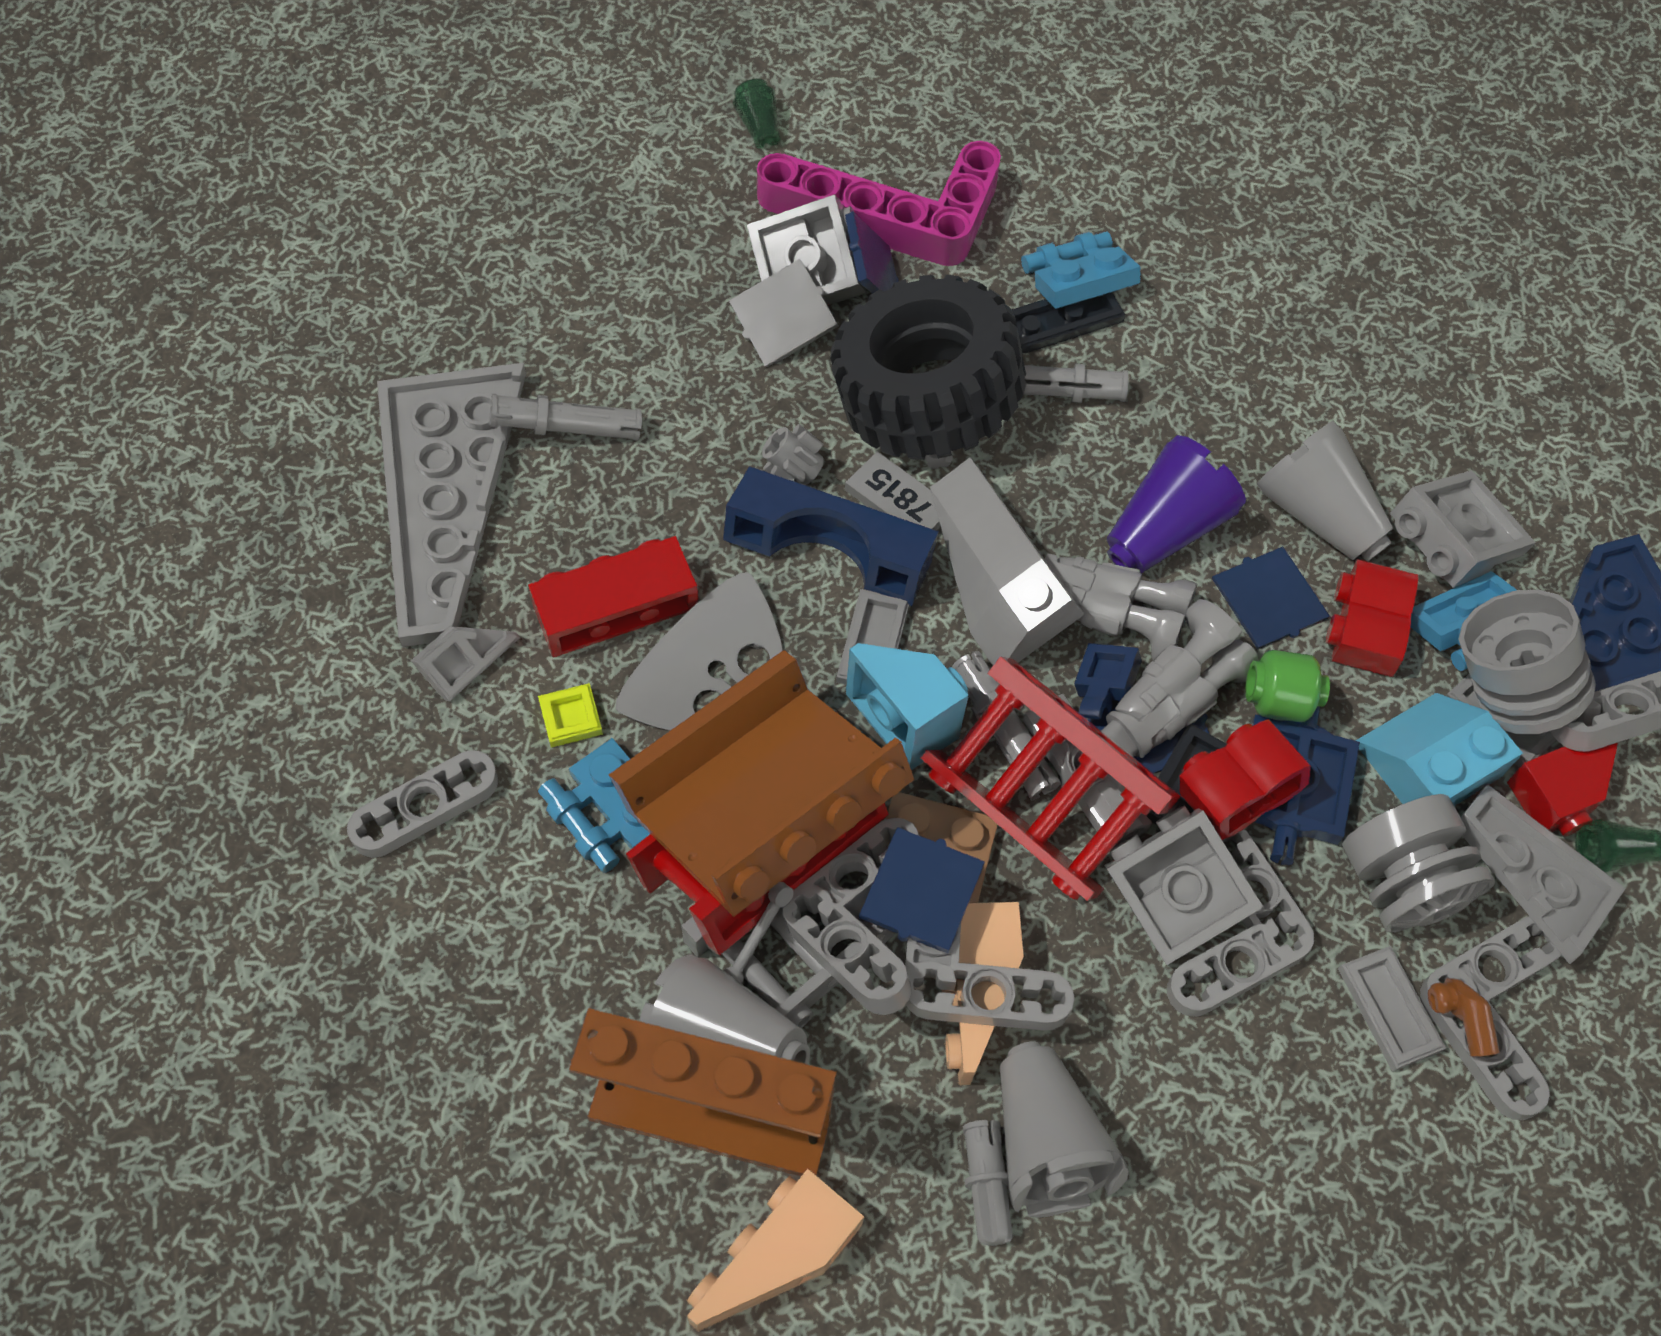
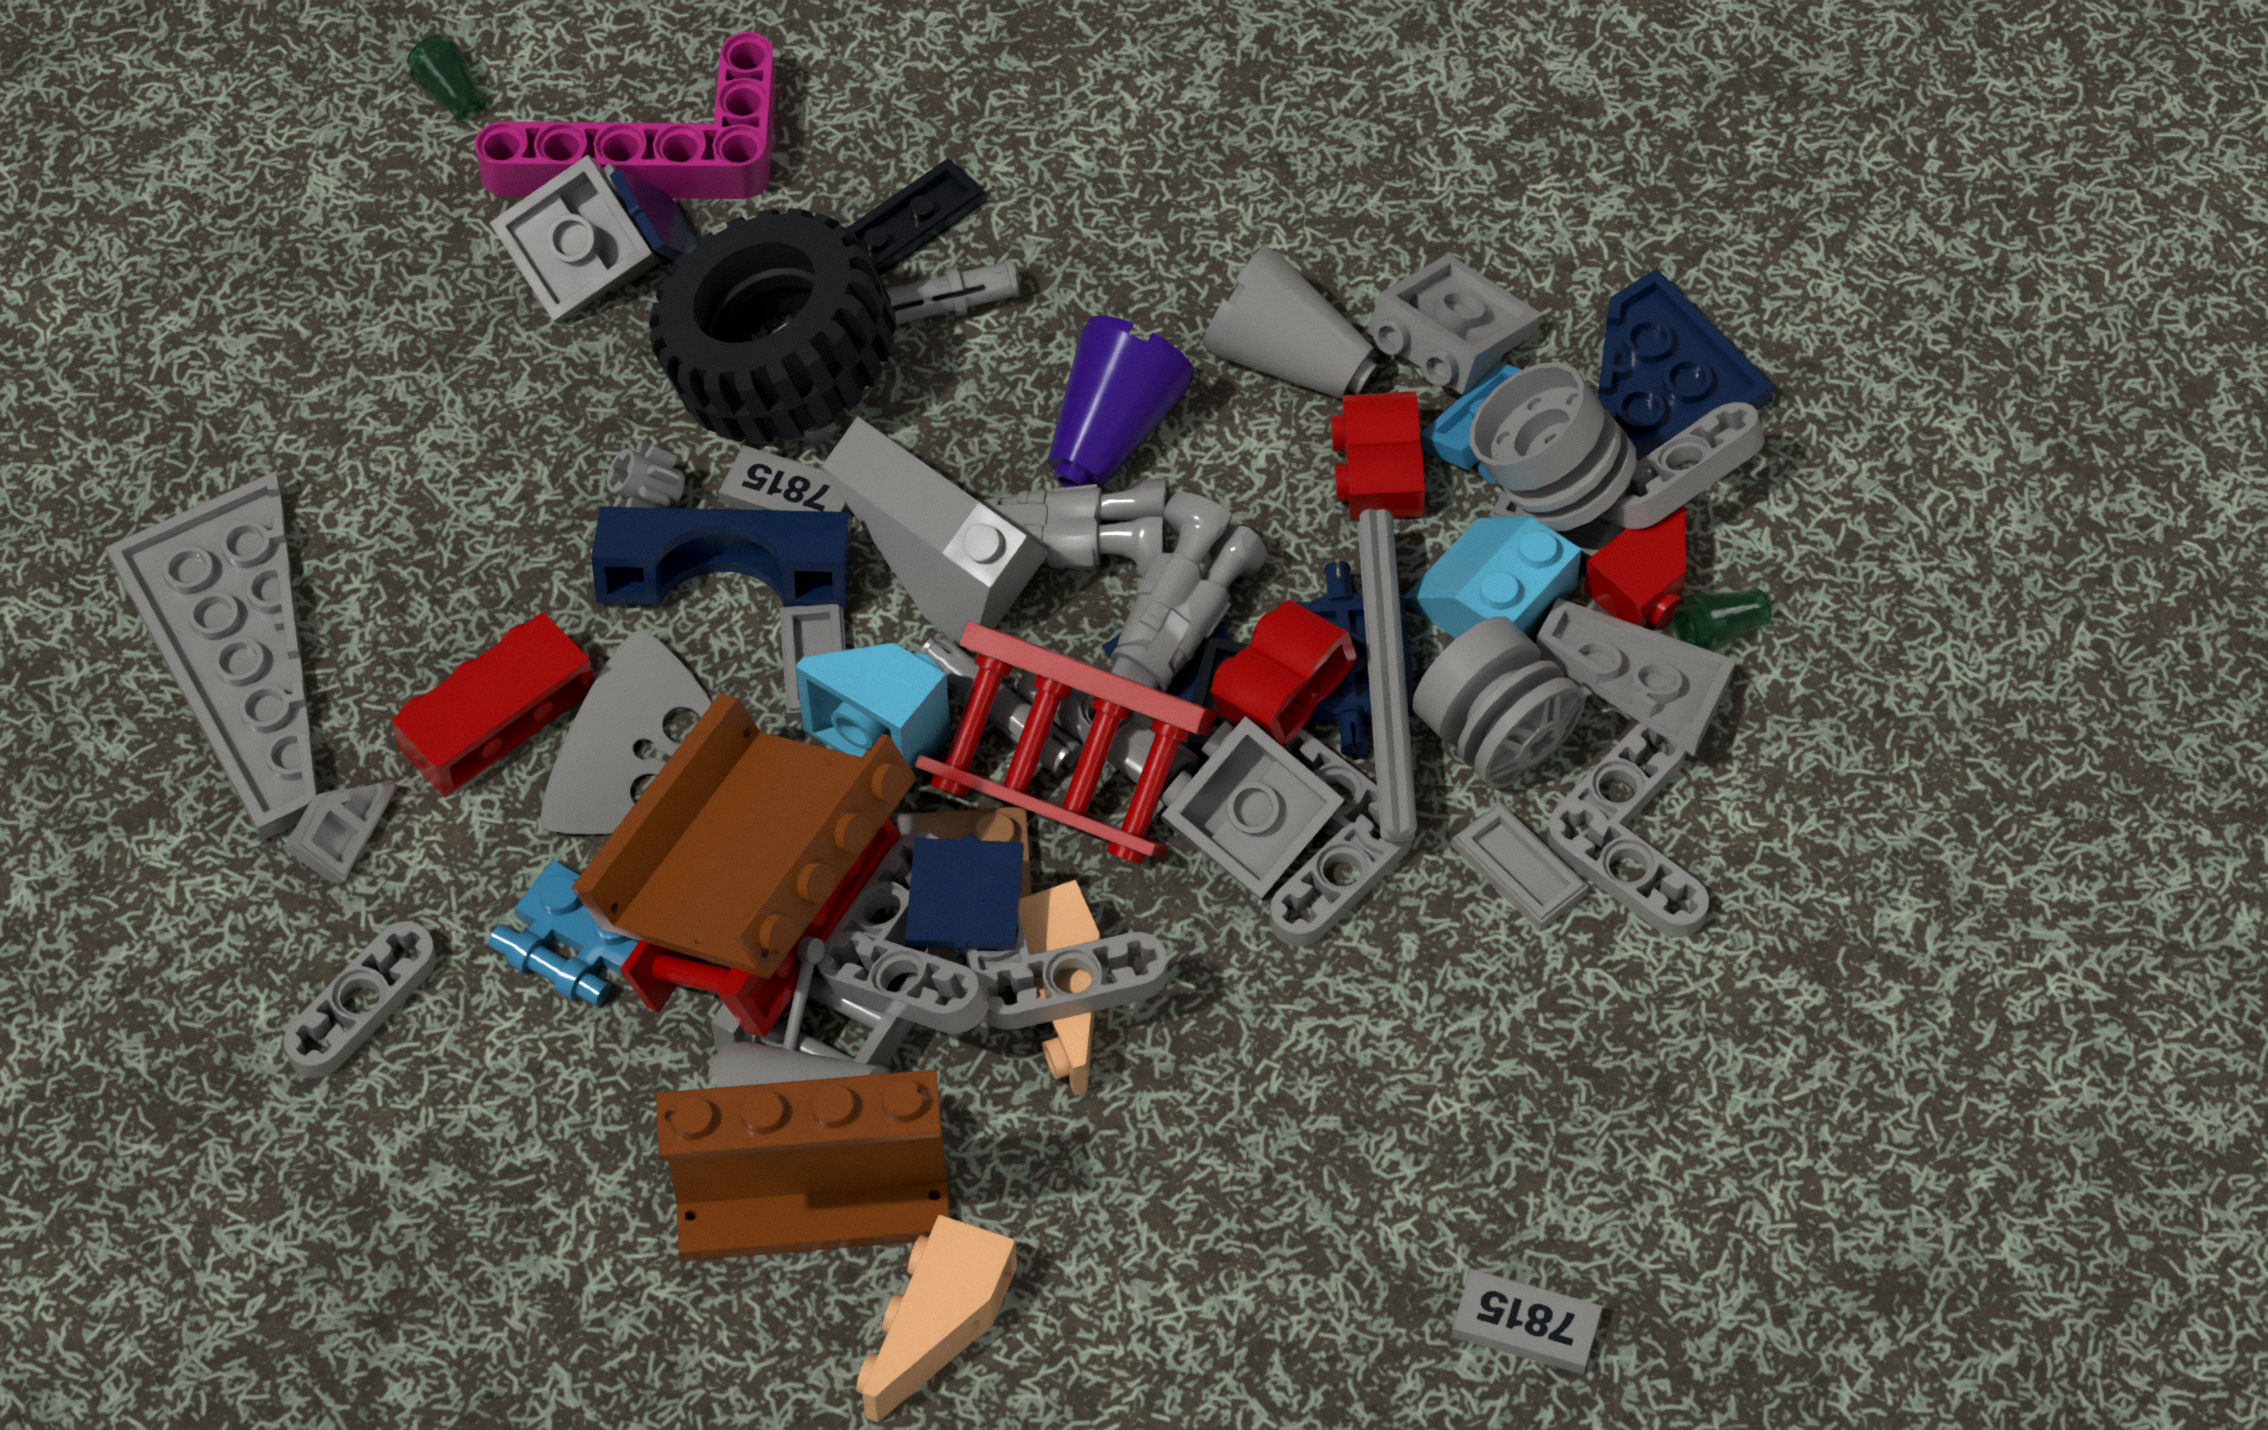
camera: 15 degrees left, 5 degrees down
(564, 417) = (329, 523): light grey pin -> none
(570, 715) = (491, 852): neon yellow tile -> none
(783, 313) = (571, 316): light grey piece -> none
(988, 1182) = (1137, 1174): light grey axle -> none
(1053, 1136) = (1193, 1105): light grey cone -> none
(1080, 269) = (933, 154): dark azure plate -> none
(1105, 676) = (1096, 615): dark blue plate -> none
(1270, 597) = (1259, 470): dark blue piece -> none
(1286, 686) = (1301, 558): bright green head -> none
(1327, 812) = (1387, 677): none -> light grey axle
(1471, 1009) = (1596, 833): dark orange arm -> none

